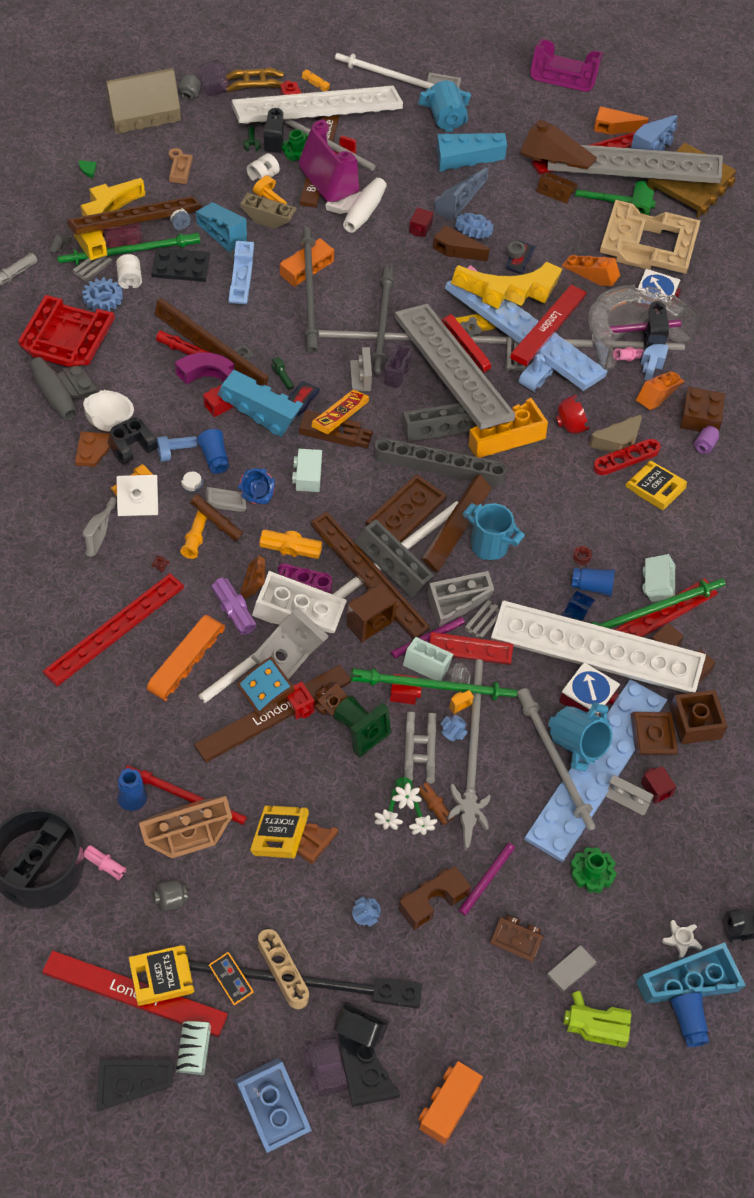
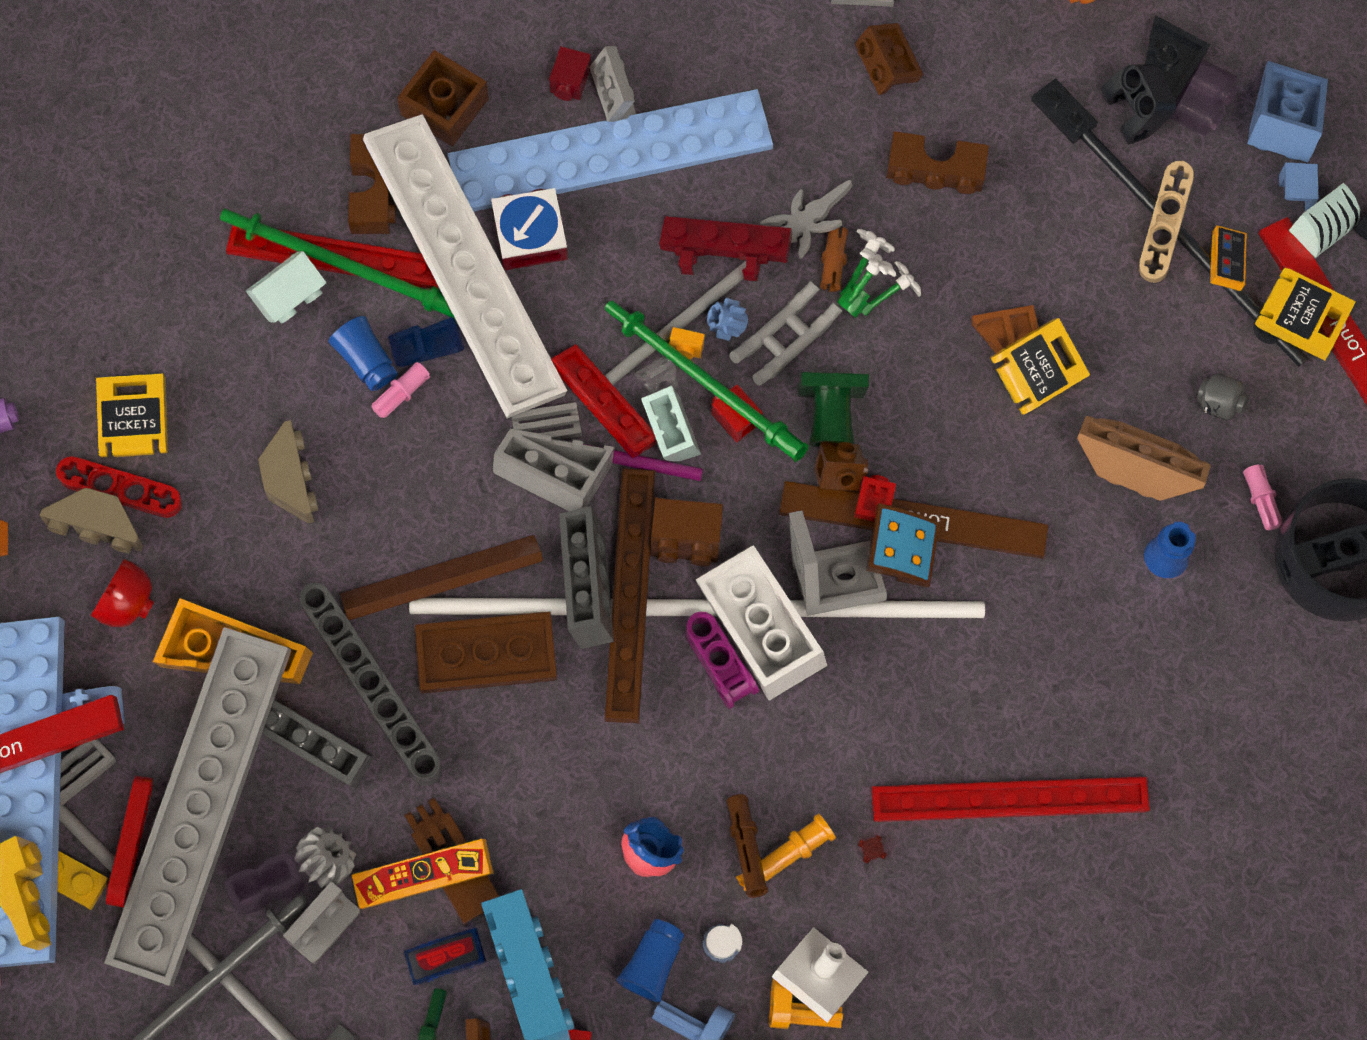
camera: 135 degrees left, 15 degrees up
(97, 526) = (910, 969): light grey piece -> none
(148, 778) = (1132, 561): red bar -> none
(185, 656) = (957, 675): orange beam -> none
(225, 499) = (708, 871): light grey tile -> none
(226, 1056) = (1300, 183): none -> medium blue panel
(234, 606) = (837, 699): medium lavender piece -> none
(254, 577) = (779, 711): dark orange wing -> none
(291, 543) = (683, 727): light orange piece -> none
(308, 470) = (554, 821): light aqua brick -> none
(366, 911) = (1024, 206): medium blue gear -> none
(387, 382) = (325, 856): none -> light grey gear
(475, 328) = (93, 863): dark grey plate -> none
(482, 771) = (737, 240): none -> dark red hinge
(486, 879) = (850, 142): magenta bar -> none
(492, 530) = (427, 502): dark azure container -> none
(531, 709) = (614, 270): light grey bar -> none
(562, 581) = (400, 390): none -> bright pink axle
(566, 509) = (285, 474): none -> dark tan slope
(582, 560) = (329, 395): clear red bush -> none
(582, 733) = (604, 176): dark azure container -> none
(593, 870) = (737, 54): green plant -> none
(654, 733) = (510, 126): reddish brown tile -> none

